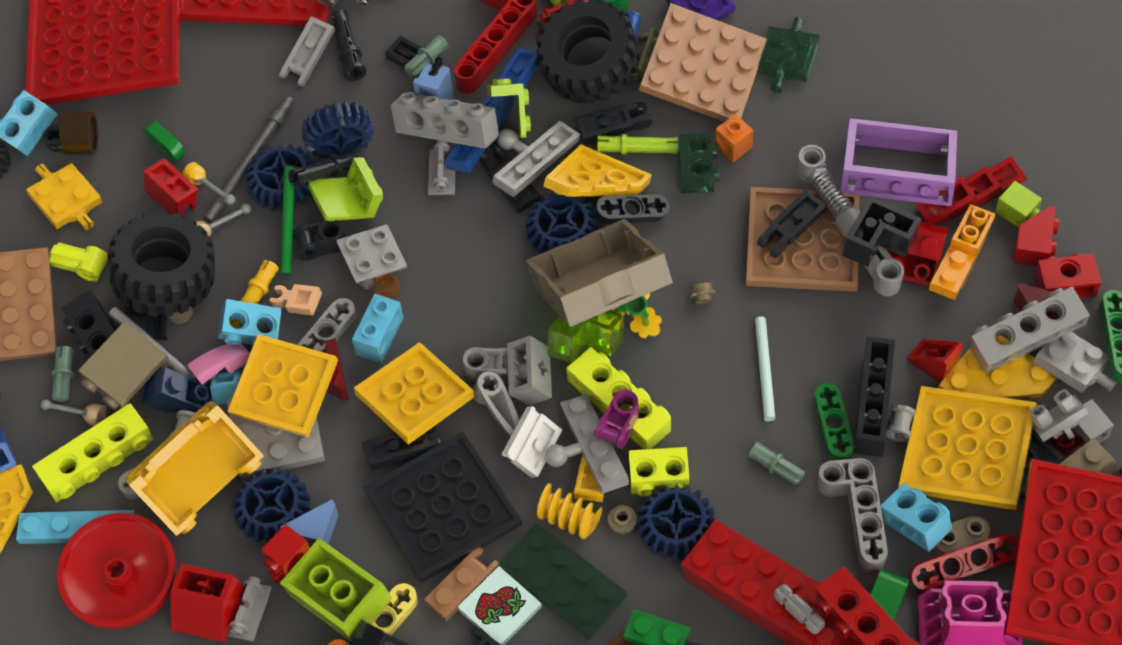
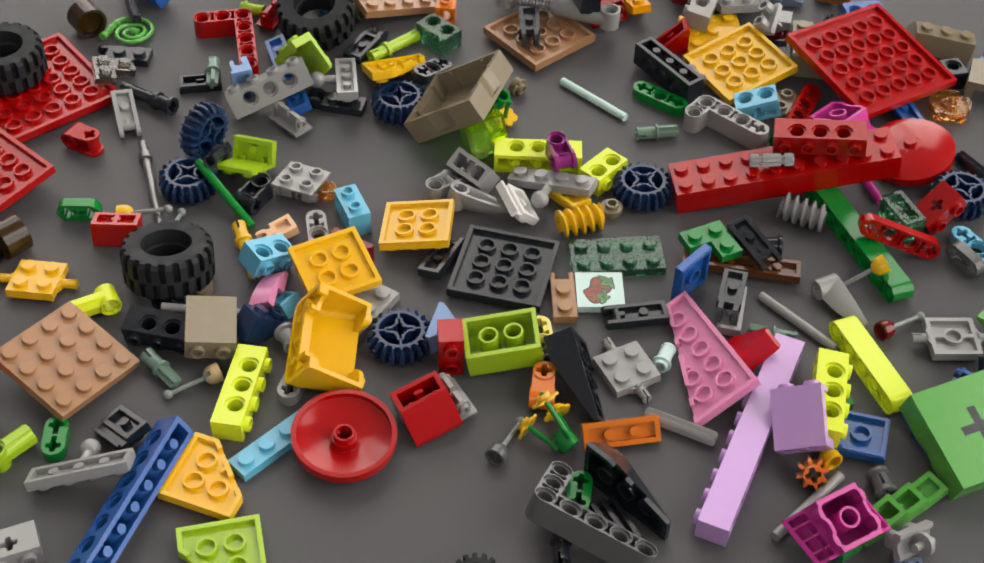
camera: 50 degrees left, 15 degrees down
(244, 58) = (83, 139): none -> red piece

